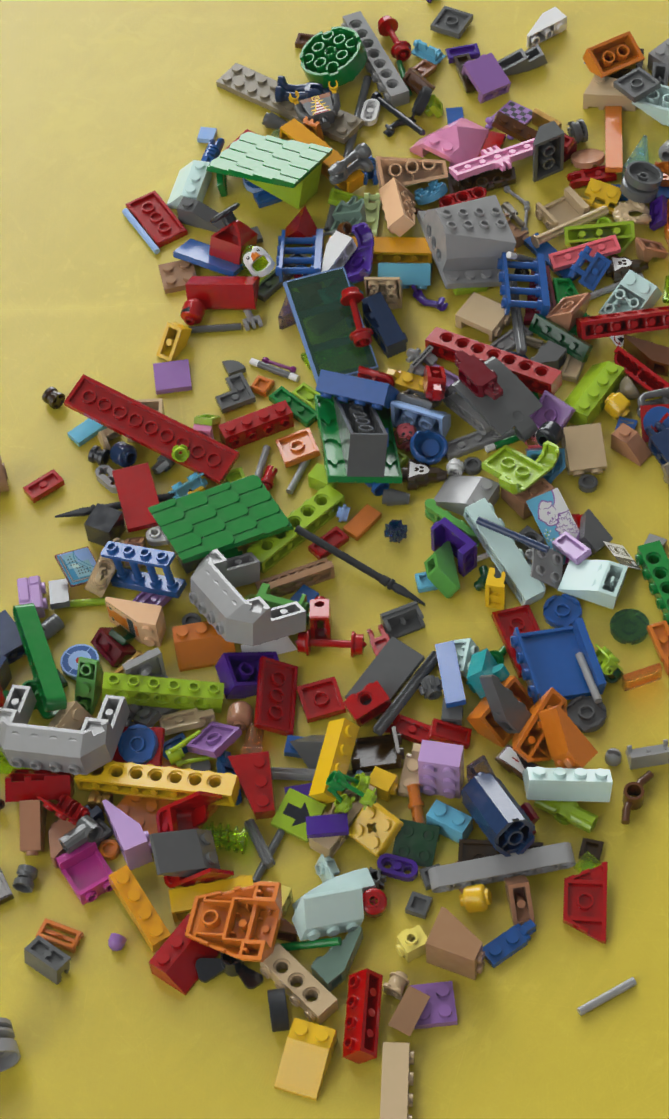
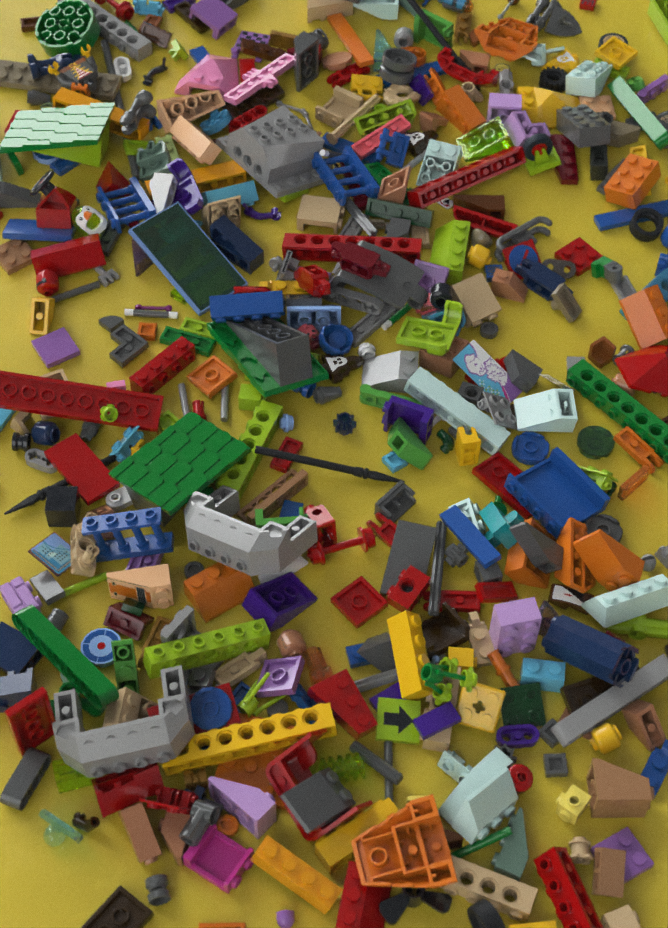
camera: 30 degrees left, 0 degrees up
(207, 419) = (114, 376): lime tile -> none
(276, 696) = (316, 614): red tile -> none
(344, 227) = (158, 168): reddish brown hinge -> none
(351, 297) = (199, 226): red piece -> none
(362, 522) = (307, 425): orange tile -> none
(376, 95) = (153, 65): black bar -> none
(422, 100) = (166, 47): black tyre -> none
(472, 466) = (381, 345): dark grey tile -> none
(512, 534) = (463, 391): dark blue bar -> none
(571, 548) = (511, 389): lavender tile -> none
(588, 677) = (589, 498): light grey bar -> none

